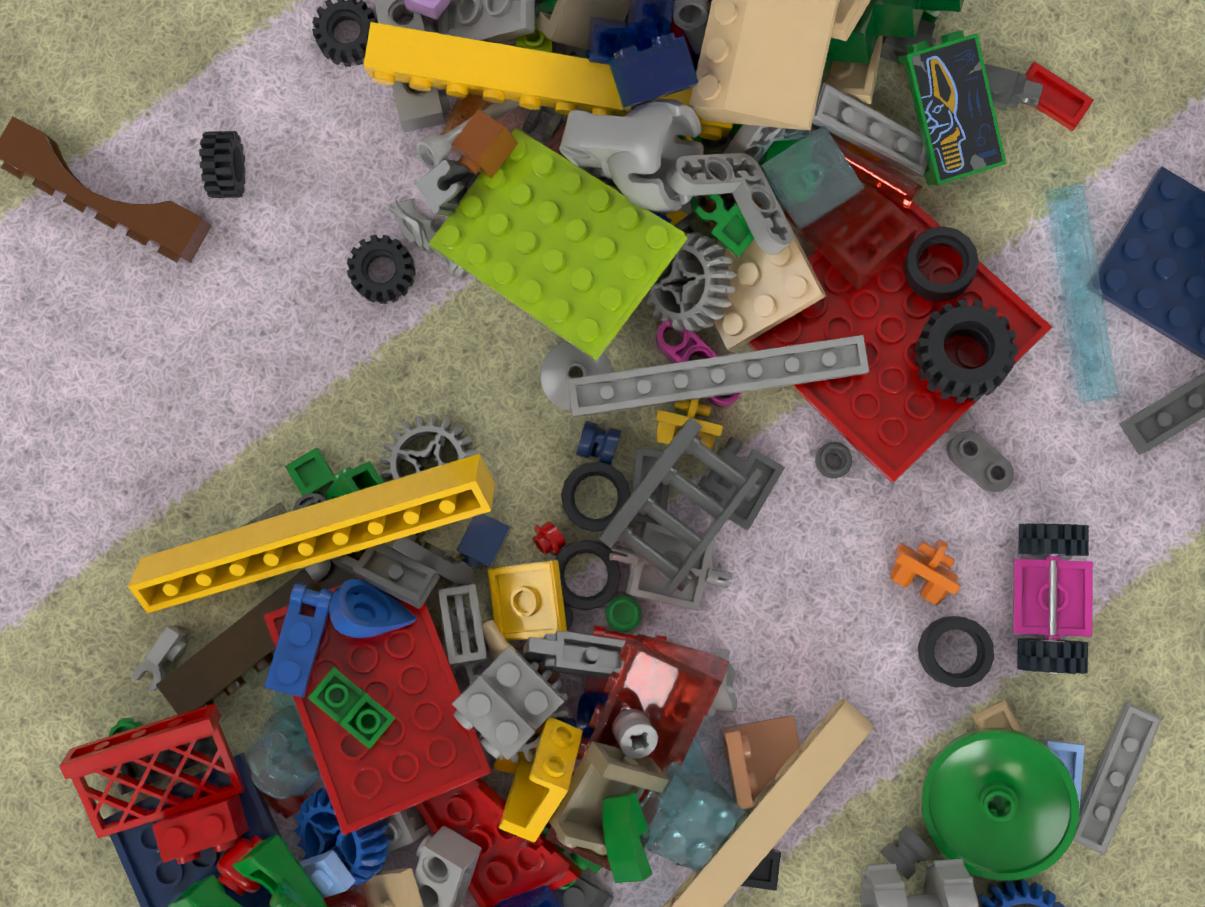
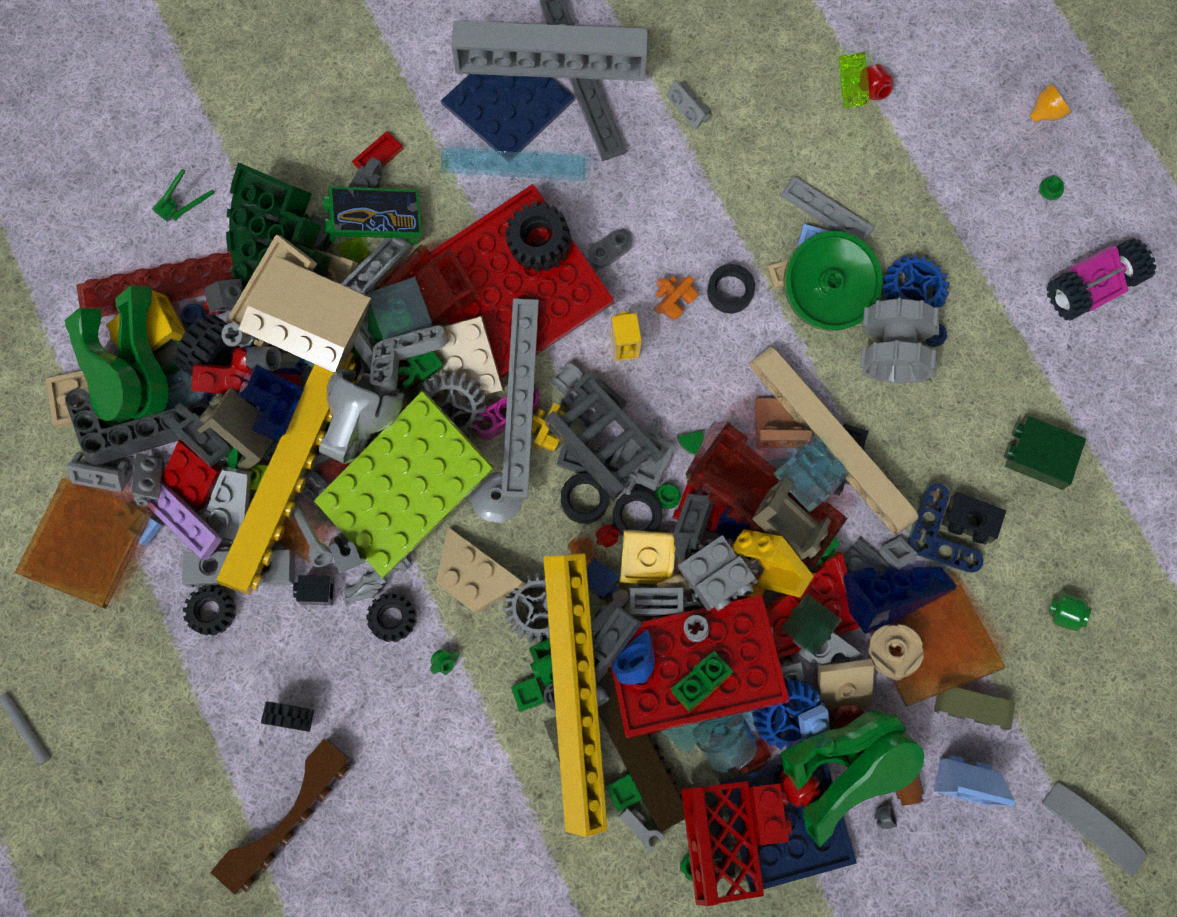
camera: 80 degrees left, 10 degrees down
(203, 624) = (623, 793): none -> green plate
(299, 641) = (649, 711): blue plate -> none
(335, 351) = (443, 661): none -> green plate
(397, 159) = (314, 590): none -> black brick
(435, 679) = (691, 621): none -> light grey bush
(458, 364) = (472, 574): none -> tan wing
(463, 849) = (811, 624): none -> clear green piece
(484, 144) = (322, 520): dark orange brick -> none
(524, 497) = (585, 545): none -> clear orange plate
(598, 442) = (547, 489): dark blue wheel -> none
(622, 827) = (816, 512): green slope -> none
(634, 723) = (751, 493): light grey wheel -> none
(652, 71) = (310, 389): clear blue brick -> none
(708, 634) = (691, 441): none -> green tile
(766, 437) = (567, 378): none -> light grey bush
(844, 456) = (590, 332): dark grey plate -> none
(844, 508) = (625, 336): none -> yellow brick
(894, 97) = (354, 250): none -> clear neon green plate
(907, 852) = (854, 343): dark grey wheel -> none
(941, 236) = (463, 229): black tyre -> none
(1053, 598) = (707, 222): plate -> none

